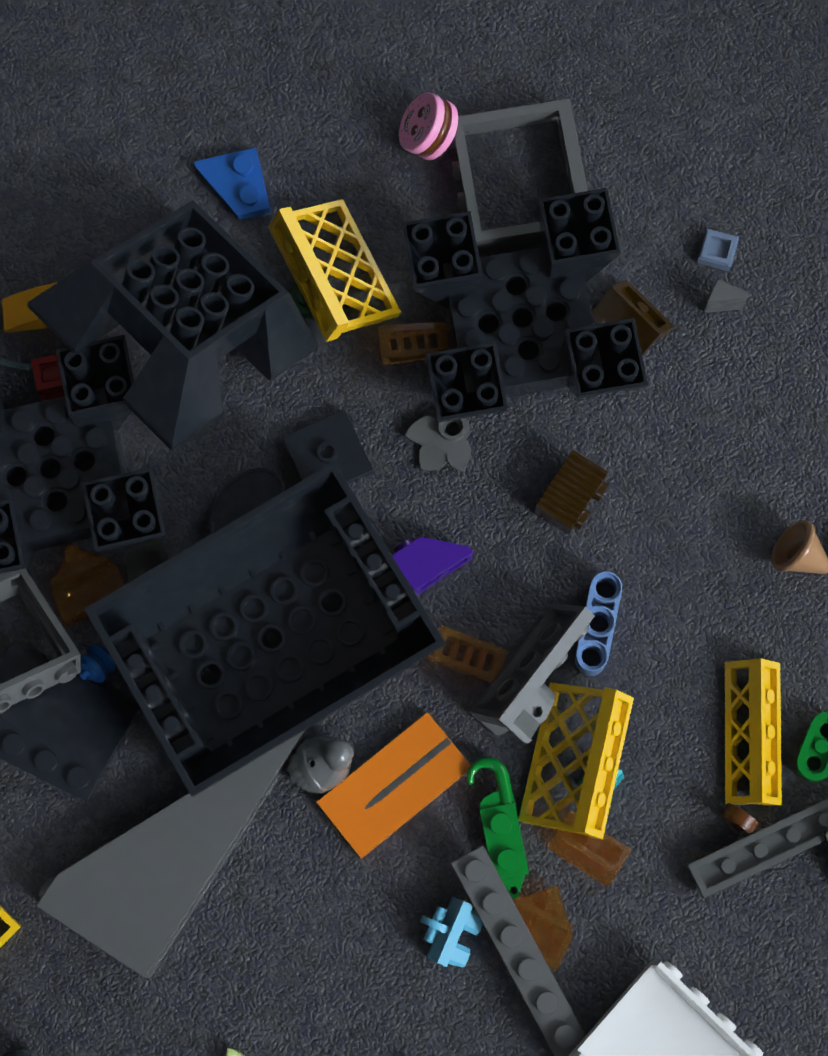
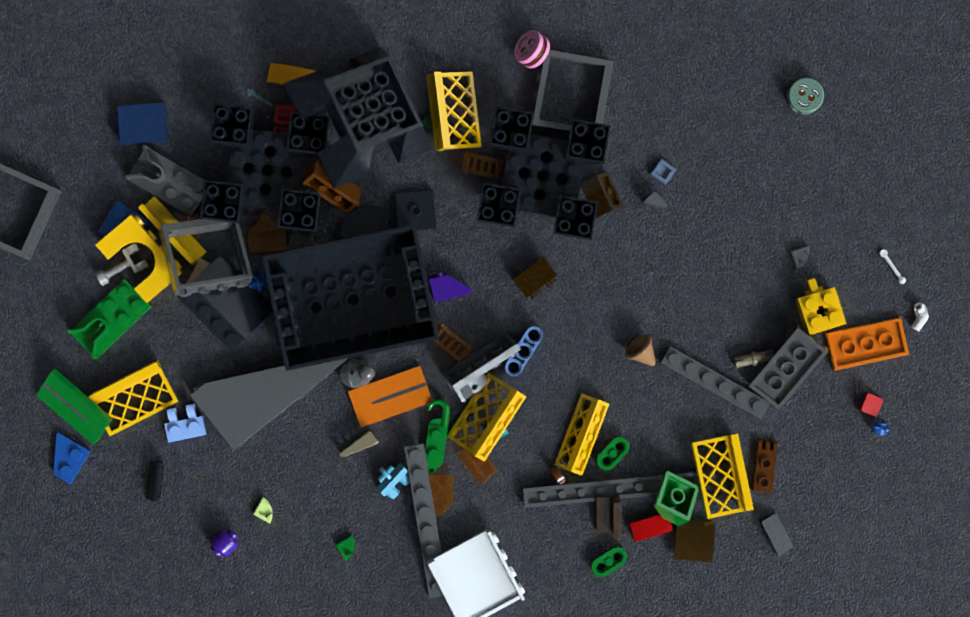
camera: 15 degrees right, 10 degrees up
(49, 971) = (186, 428): none -> light blue plate
(190, 464) = (344, 197): none -> reddish brown brick
(237, 182) = (419, 41): blue wing -> none
(375, 882) = (365, 441): none -> dark tan slope
(438, 445) = (476, 229): dark grey plate -> none

